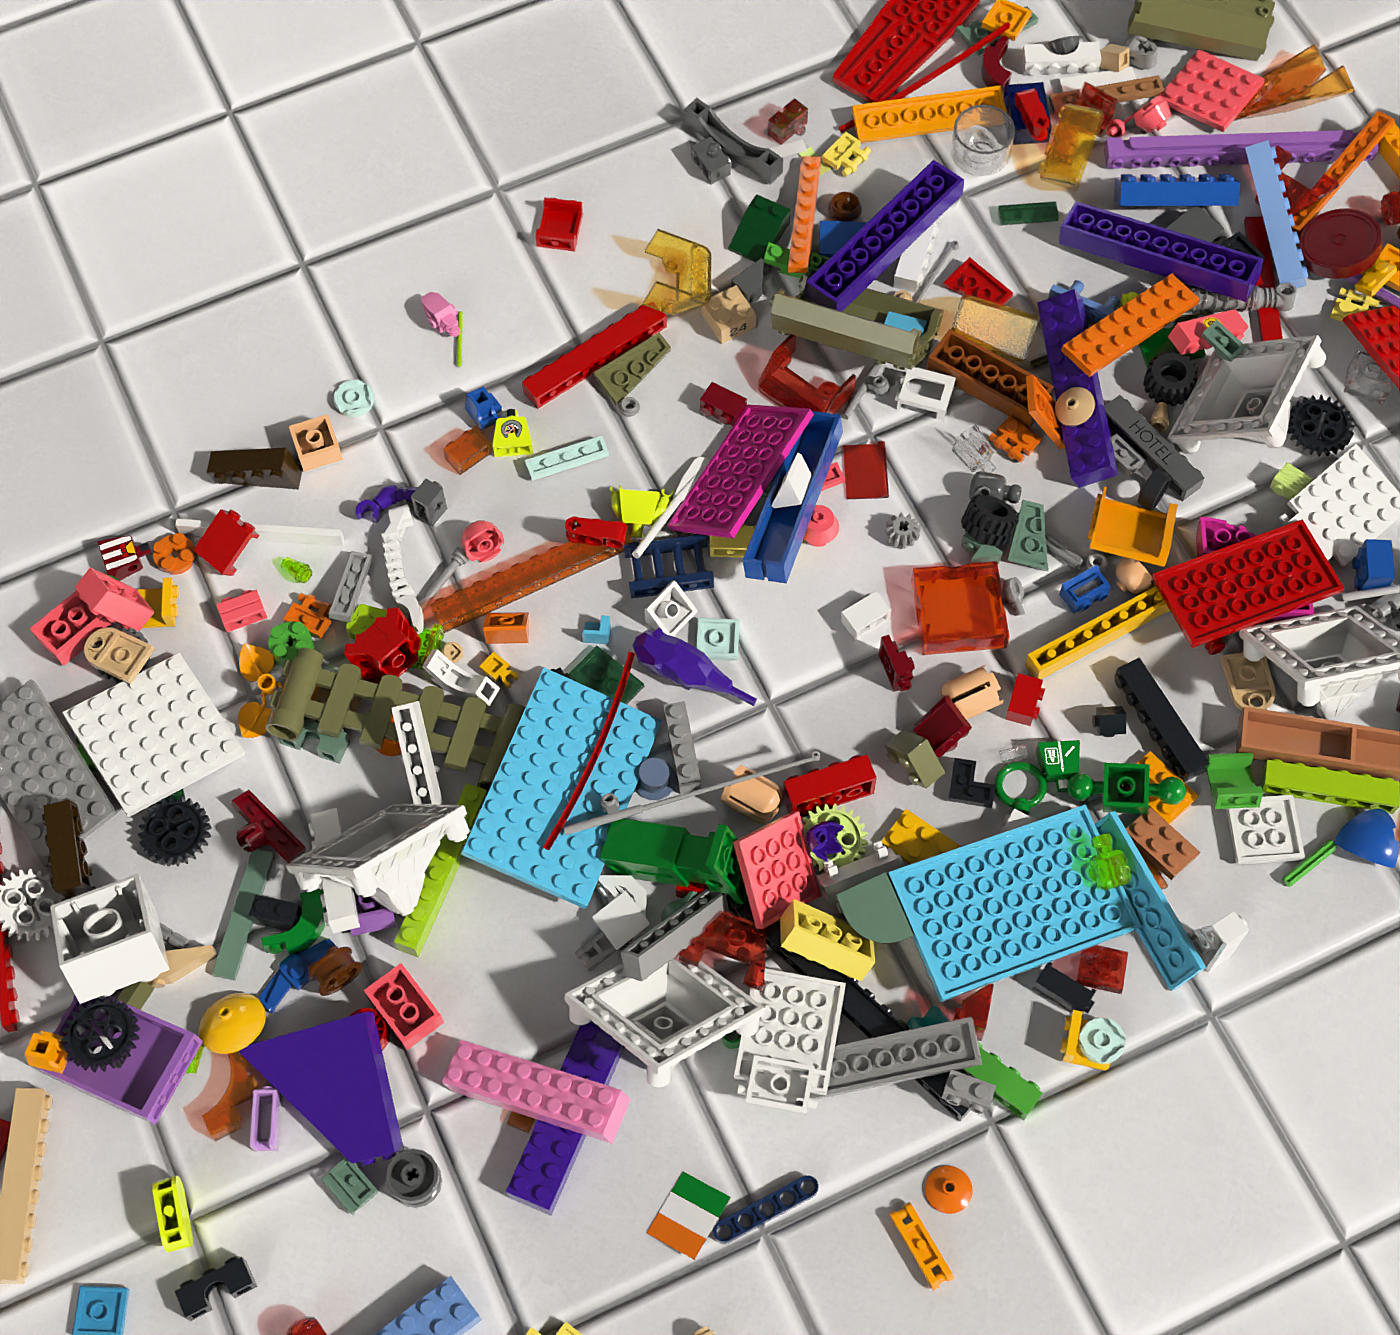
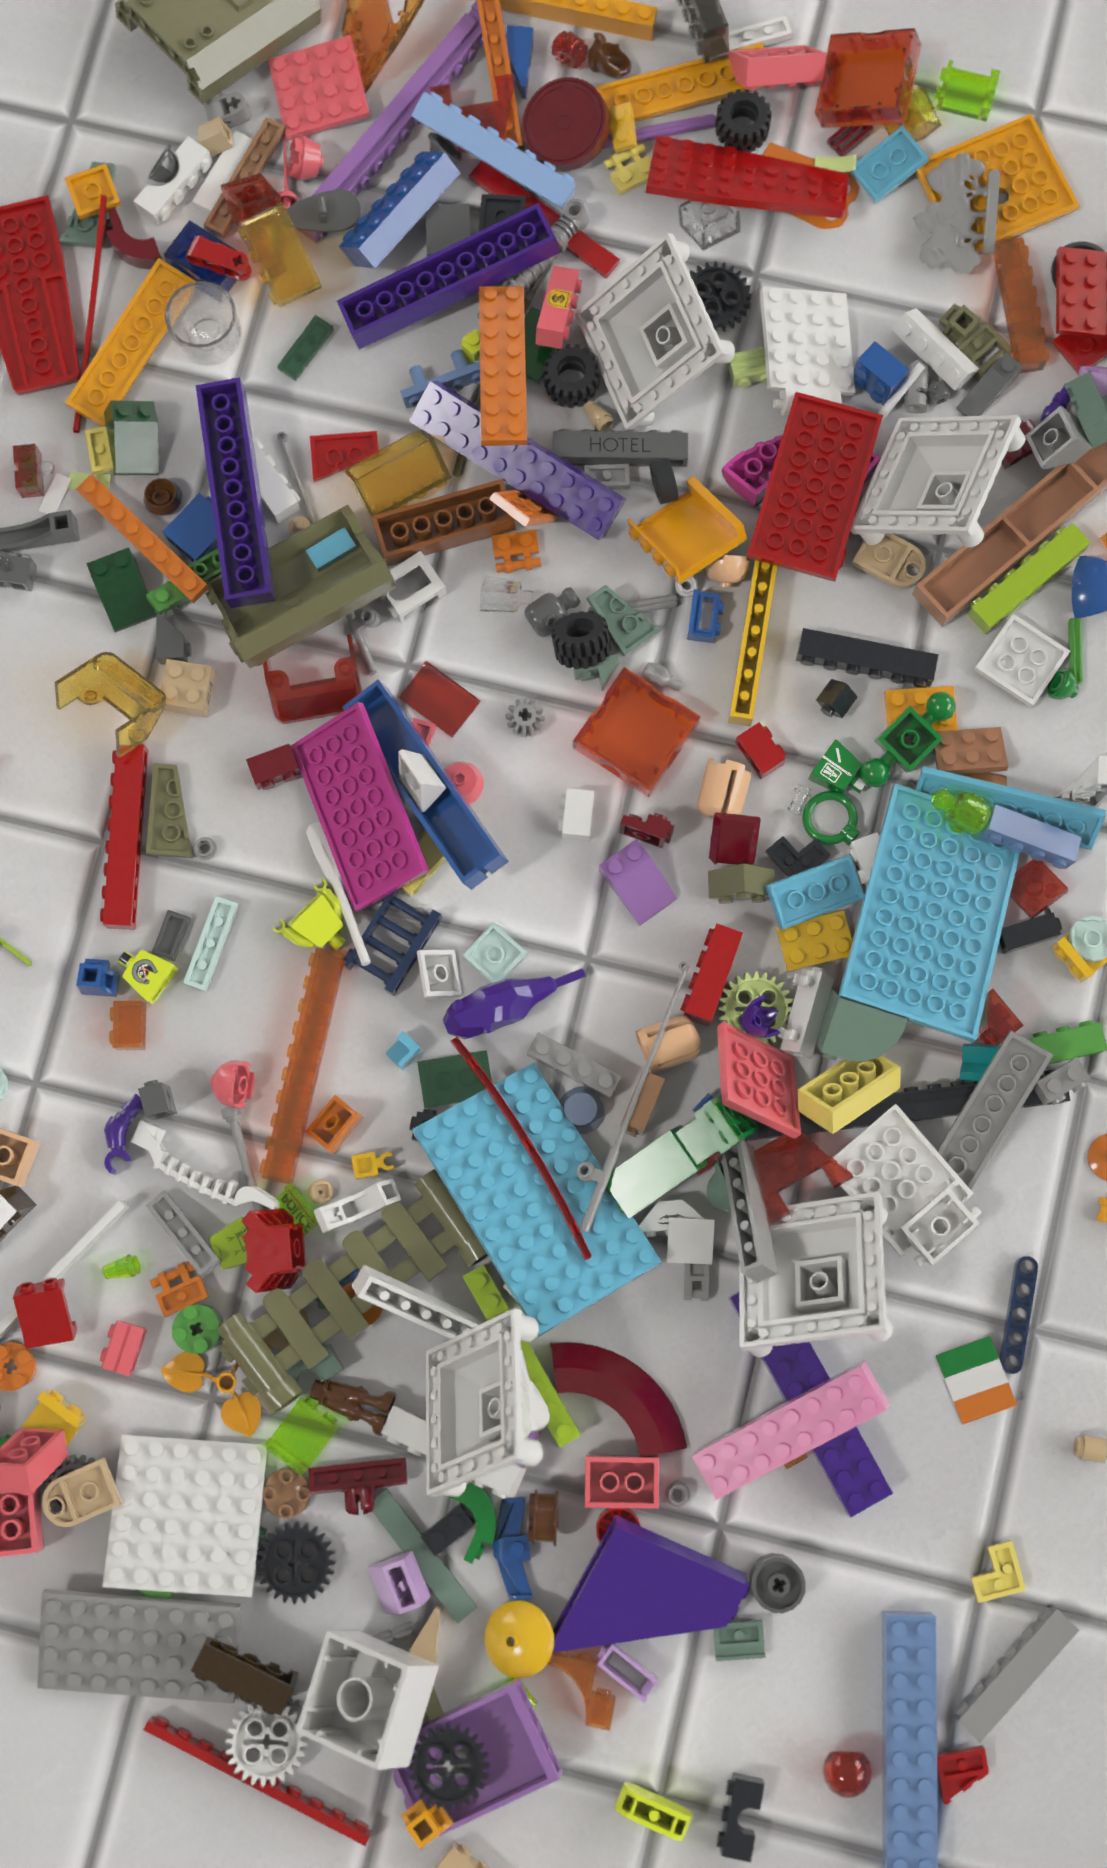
camera: 50 degrees left, 15 degrees up
(212, 909) = (399, 1583): none -> lavender slope
(219, 789) = (286, 1493): none -> medium nougat dish
(269, 769) = (302, 1435): none -> clear neon green panel
(317, 778) = (347, 1400): none -> reddish brown piece
(423, 1052) = (677, 1501): none -> light grey plate
(474, 961) = (624, 1388): none -> dark red brick
(552, 431) = (171, 935): none -> dark grey tile
(596, 532) = (316, 979): red piece -> none
(695, 811) = (644, 1105): none -> medium nougat brick
(853, 690) = (637, 882): none -> medium lavender slope
(867, 159) = (133, 437): none -> slope
(953, 811) = (815, 891): none -> medium azure tile
(1077, 413) = (550, 479): tan dish -> none
(1129, 151) = (326, 212): none -> dark grey shield
(1136, 932) = (1031, 837): none -> medium blue brick
(1224, 342) = (586, 306): sand green slope -> none
(1233, 781) = (966, 650): bright green panel -> none
(1247, 188) = (440, 144): none -> dark grey piece
(1274, 873) = (1062, 685): none -> green brick
(1362, 182) = (520, 48): none -> blue slope

